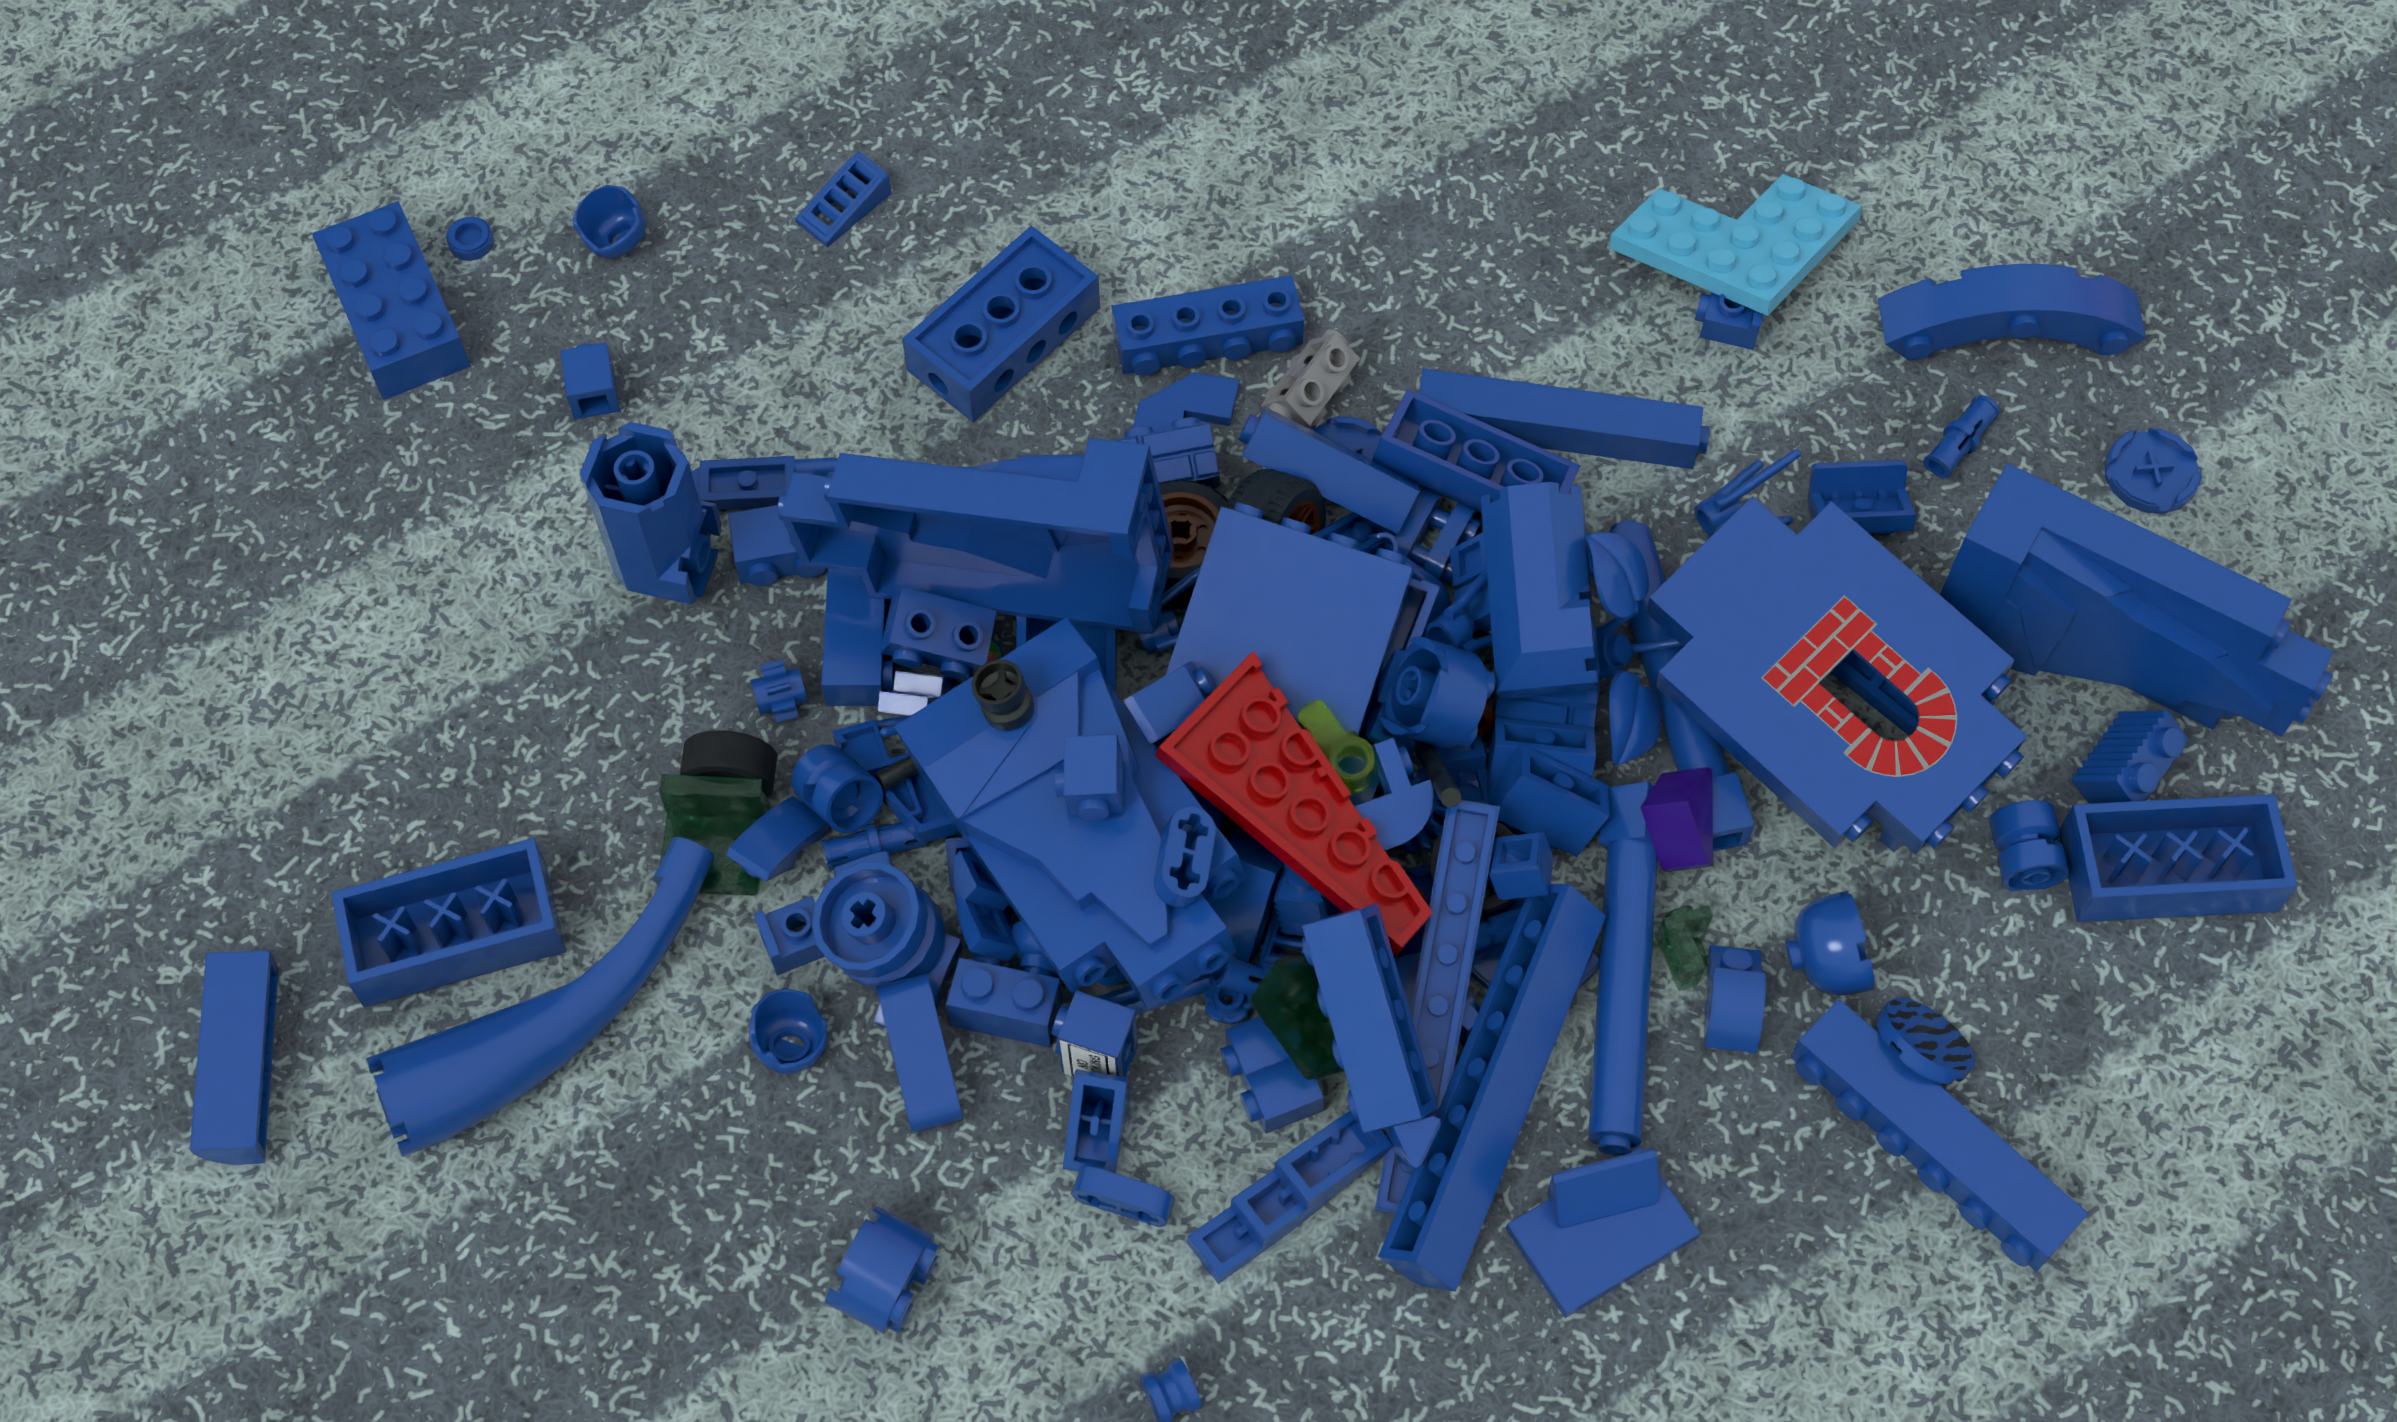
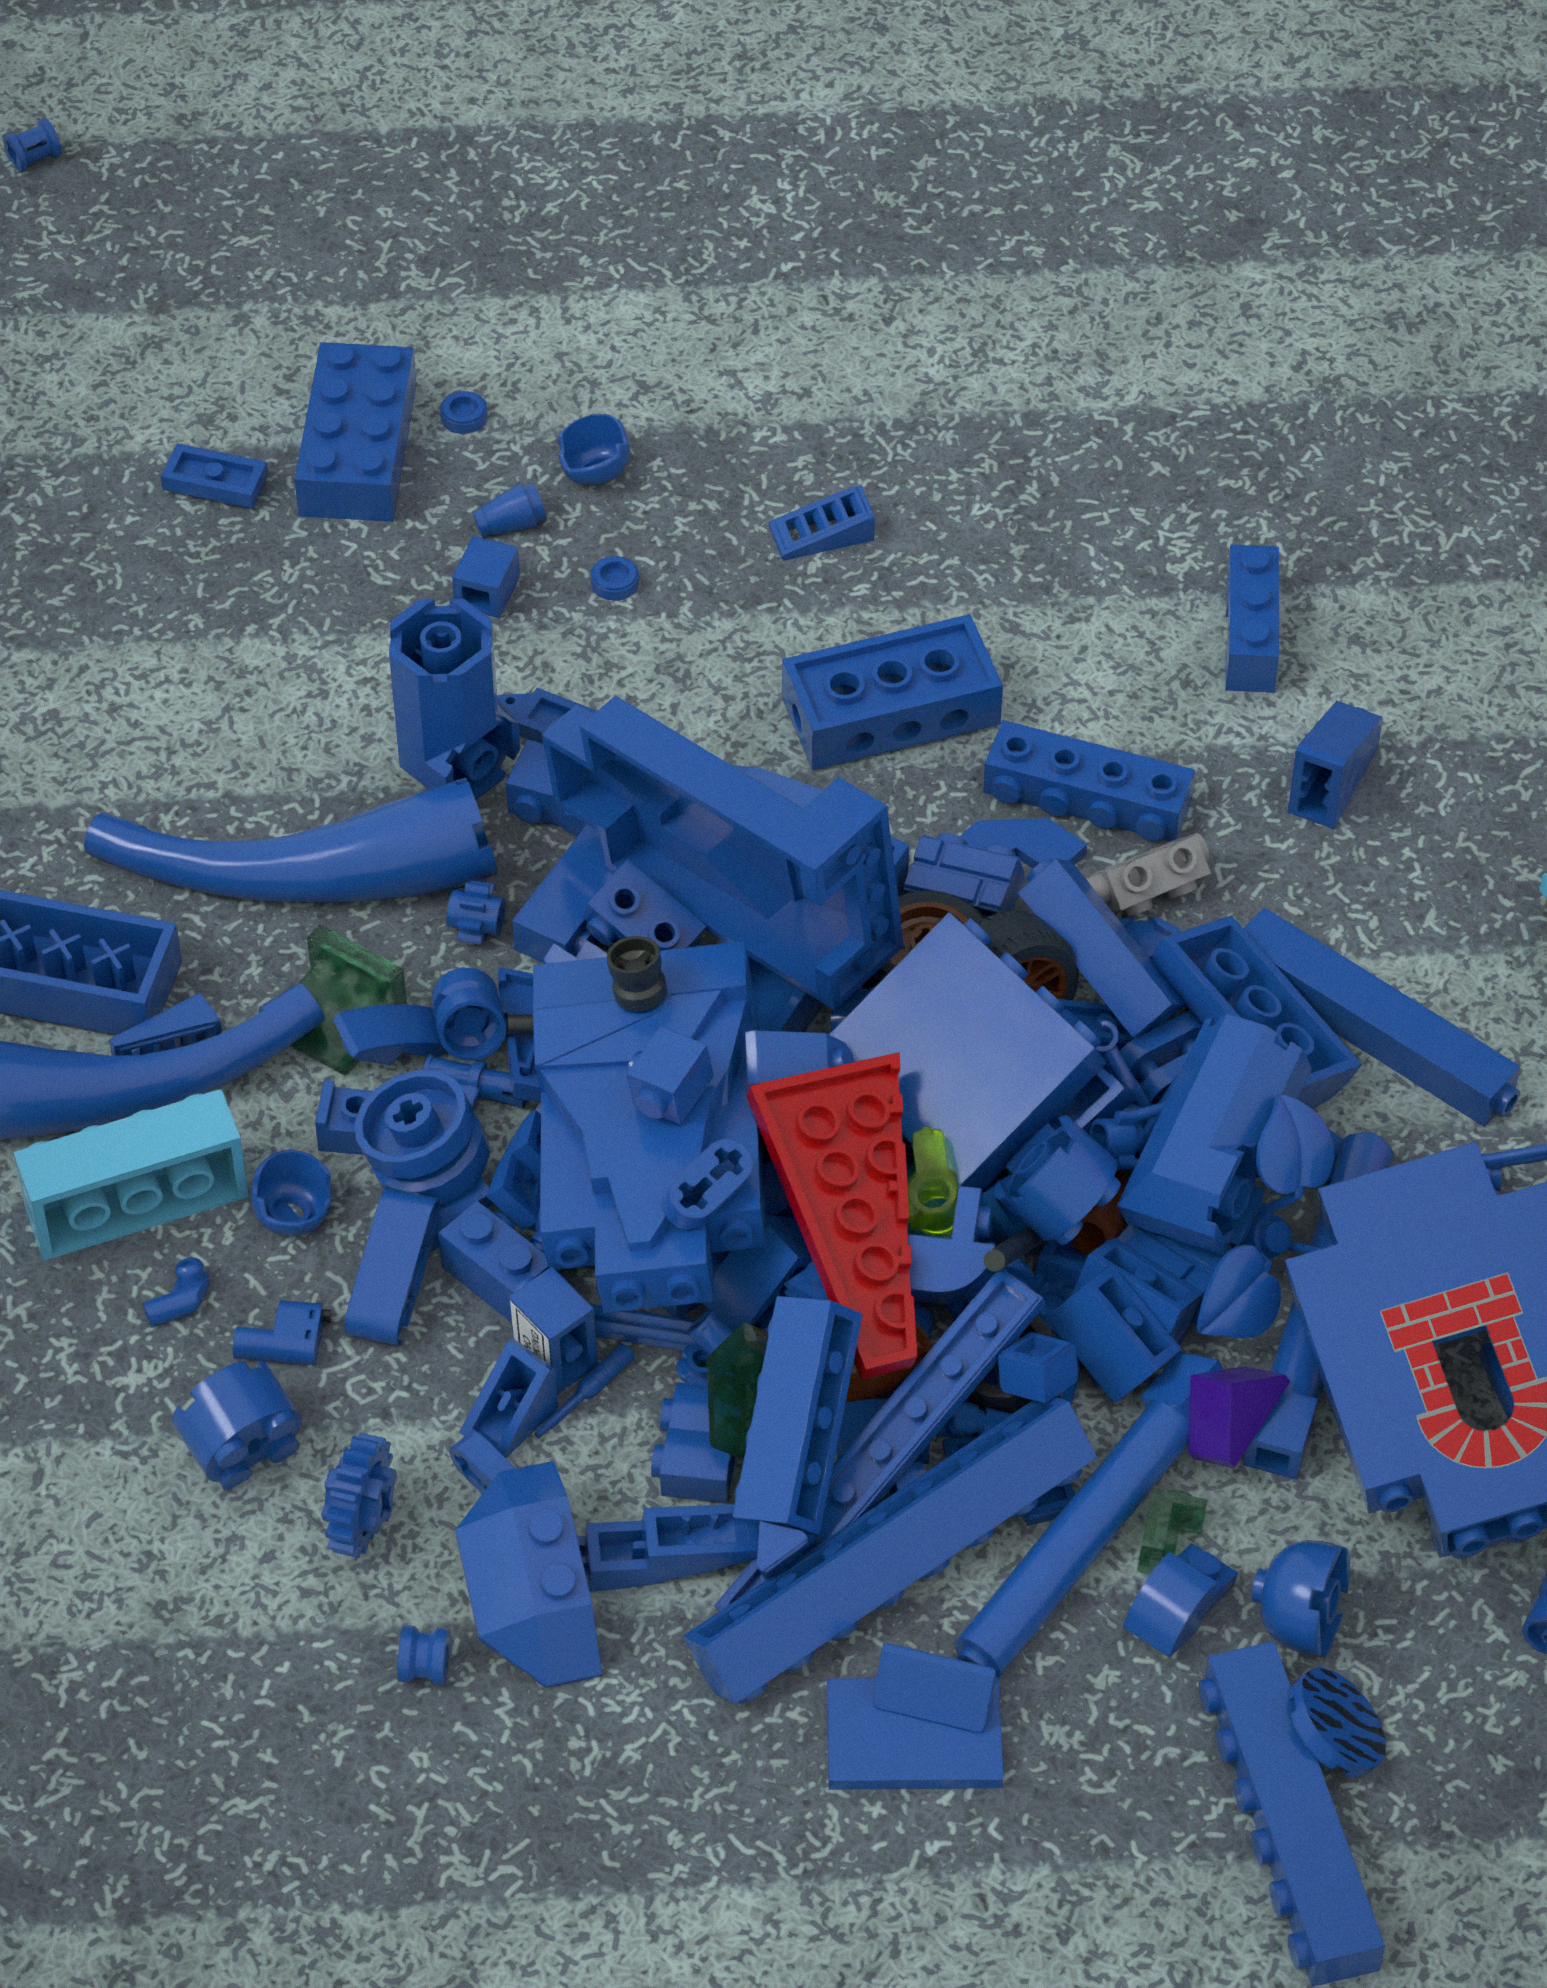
camera: 30 degrees right, 10 degrees down
(286, 398) = (214, 475): none -> blue plate
(572, 309) = (510, 511): none -> blue cone
(586, 937) = (172, 1028): none -> blue slope
(640, 1090) = (132, 1174): none -> medium azure brick
(666, 680) = (381, 854): none -> blue brick
(697, 329) = (614, 578): none -> blue tile
(729, 755) = (394, 939): black tyre -> none
(749, 1172) = (184, 1297): none -> blue arm
(869, 1166) = (292, 1340): none -> blue piece
(1032, 1282) = (359, 1495): none -> blue gear
(1145, 1065) = (591, 1384): none -> blue piece
(1218, 1270) = (530, 1577): none -> blue wedge
(1261, 139) = (1252, 618): none -> blue arch
(1391, 216) = (1332, 763): none -> blue slope

